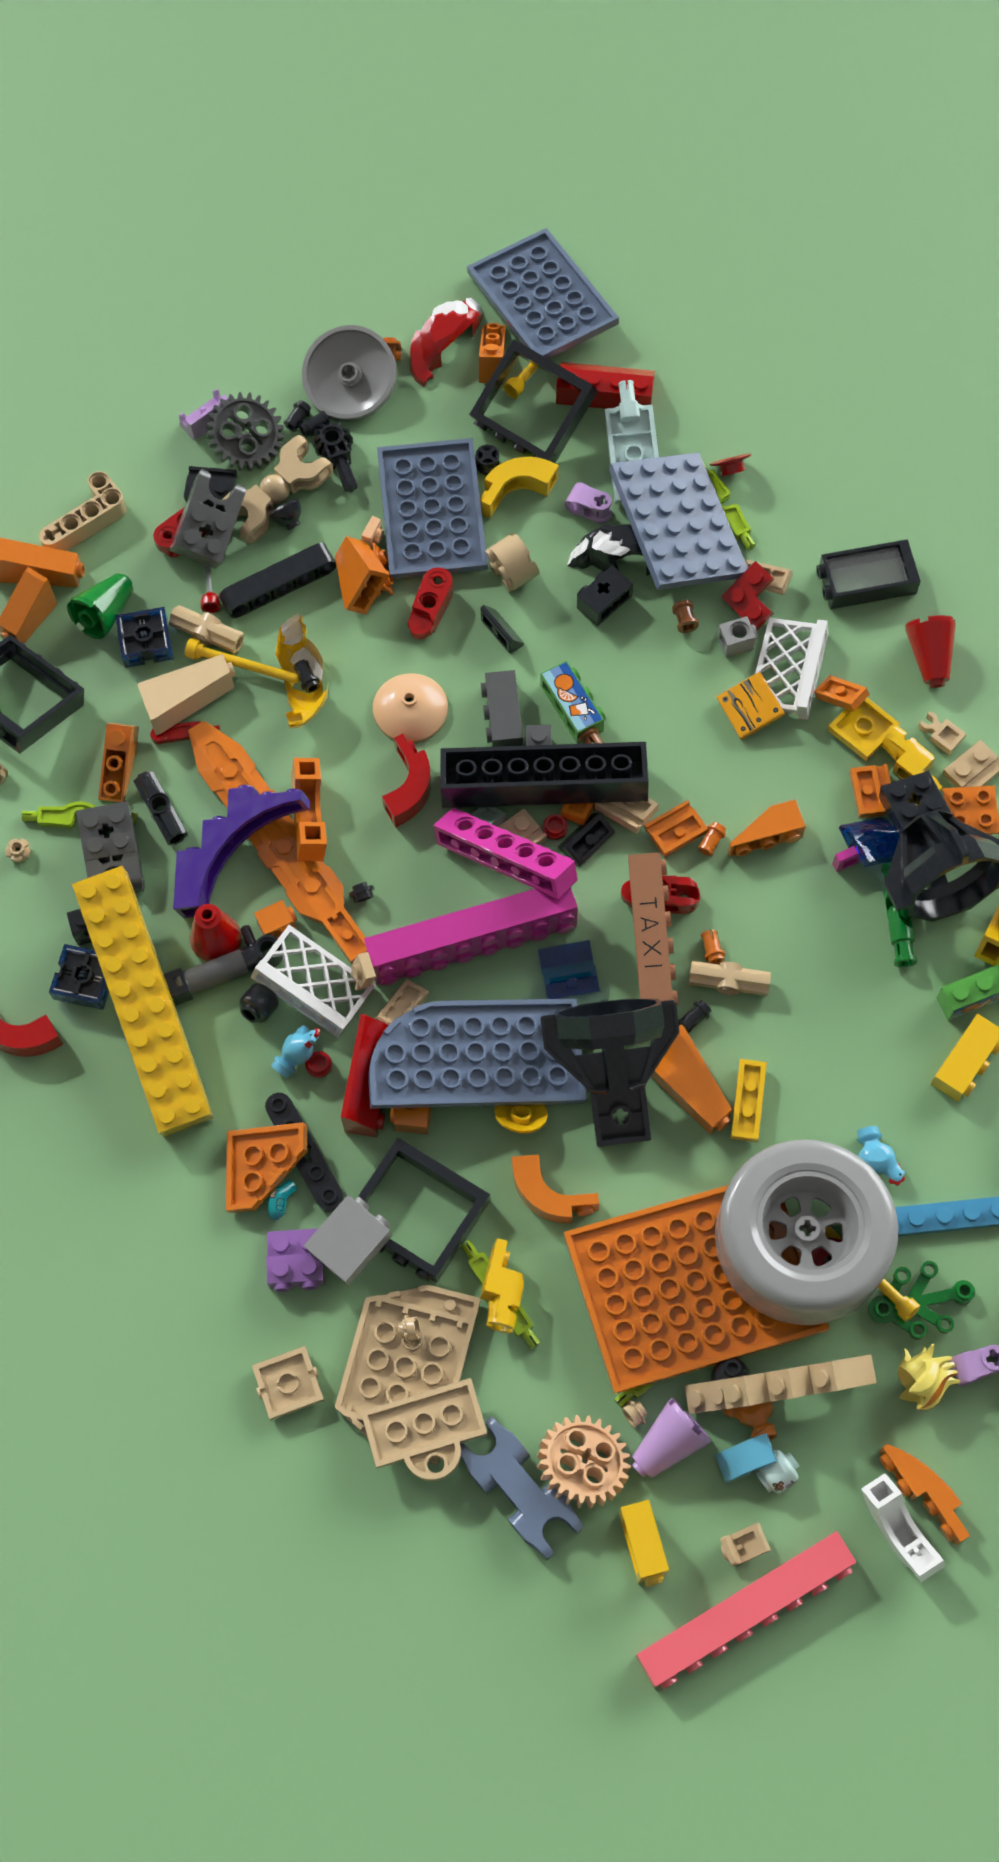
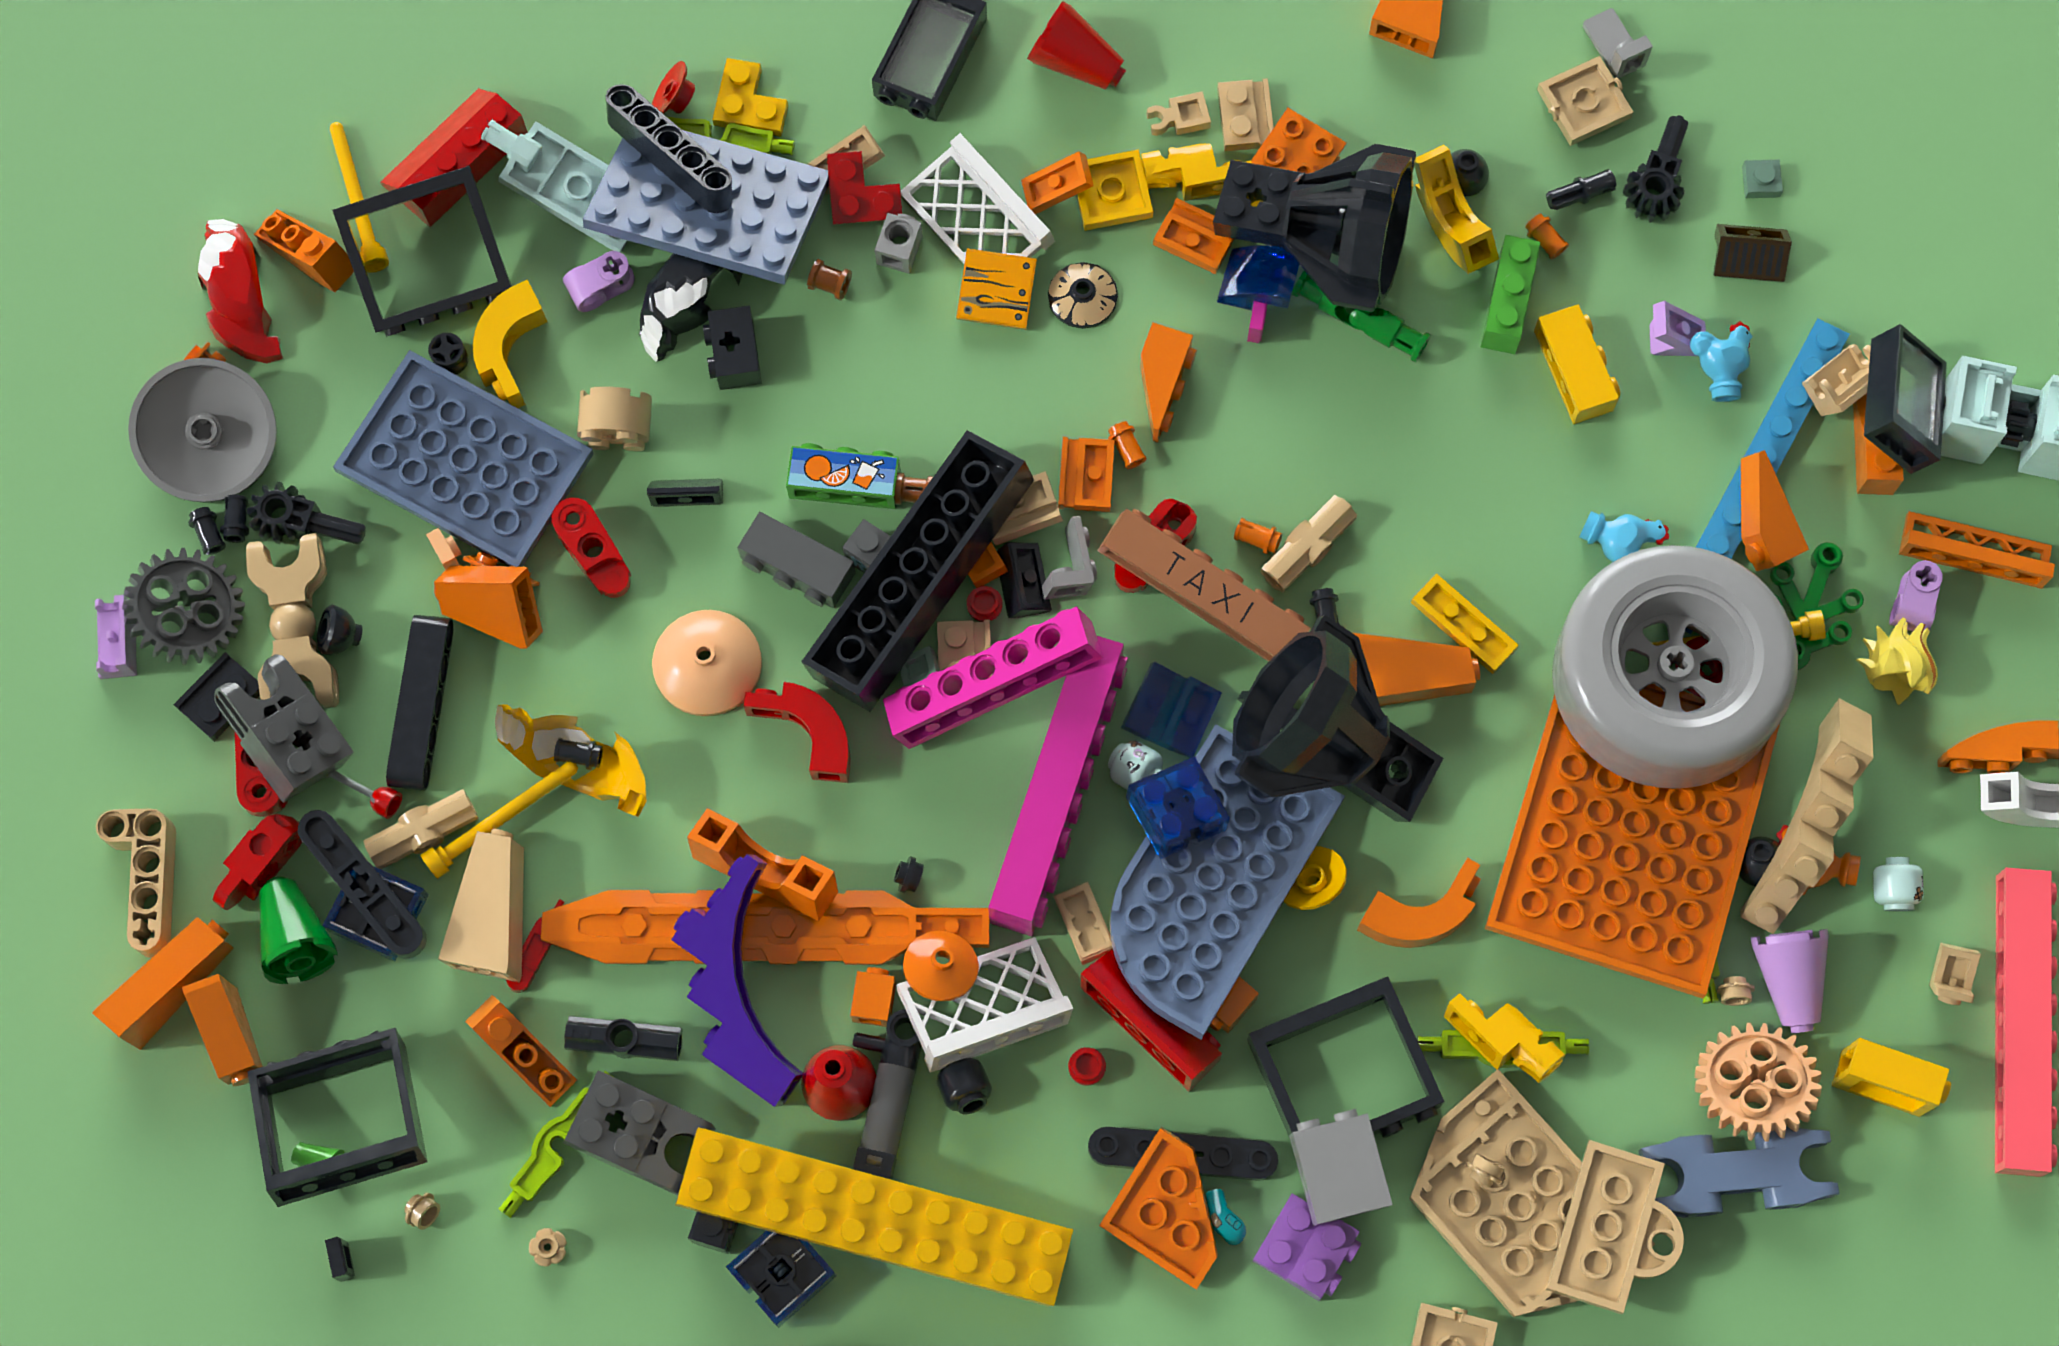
camera: 55 degrees left, 5 degrees up
(134, 561) = (258, 859): none -> red piece
(143, 636) = (384, 909): none -> black piece
(296, 1050) = (1056, 1078): medium azure animal -> none
(313, 951) = (939, 980): none -> orange dish
(363, 971) = (1023, 937): tan plate -> none
(503, 1004) = (1177, 807): none -> clear blue piece
(516, 972) = (1133, 762): none -> light aqua head
(542, 295) = (275, 139): sand blue plate -> none
(601, 862) = (1065, 581): none -> light grey bracket
(688, 477) = (669, 148): none -> black beam
(746, 1457) = (1865, 907): medium azure slope -> none
(755, 504) = (741, 105): none -> yellow plate
(783, 765) = (1082, 309): none -> tan dish
(952, 1237) = (1766, 517): none -> orange slope

